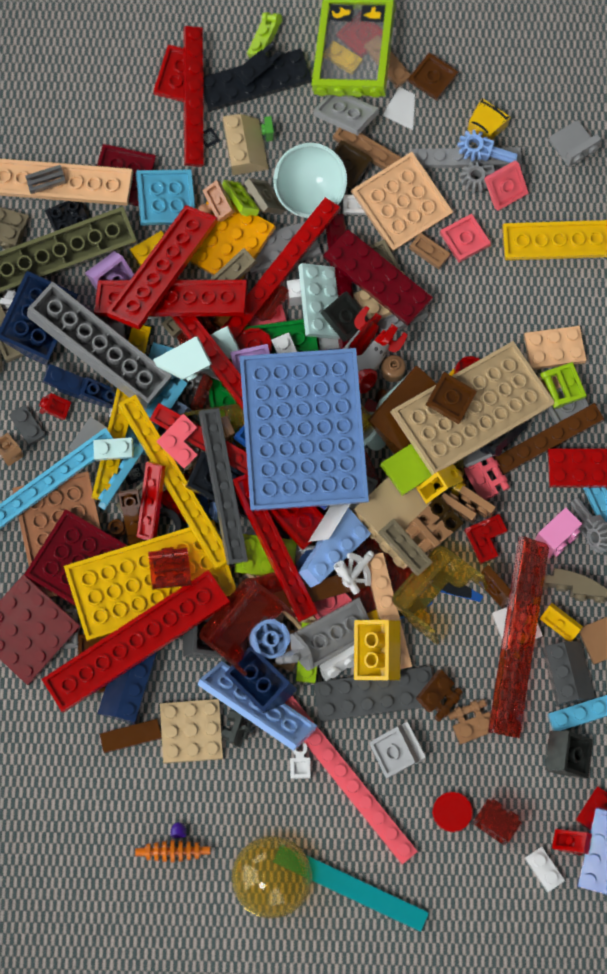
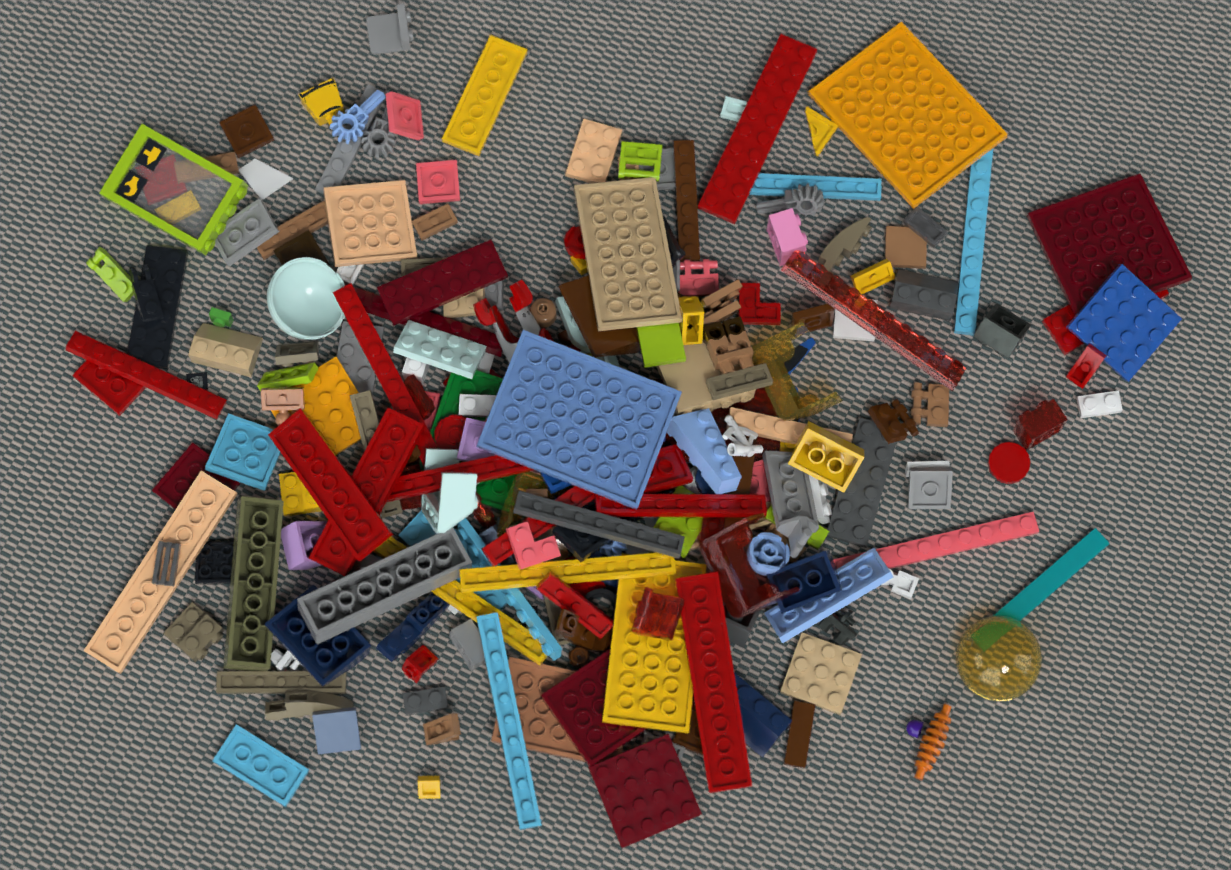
camera: 65 degrees left, 0 degrees up
(113, 449) = (505, 617): light aqua plate -> none
(329, 522) = (682, 442): white sticker -> none
(341, 316) = (469, 333): pearl dark grey plate -> none
(451, 398) = (611, 267): reddish brown plate -> none

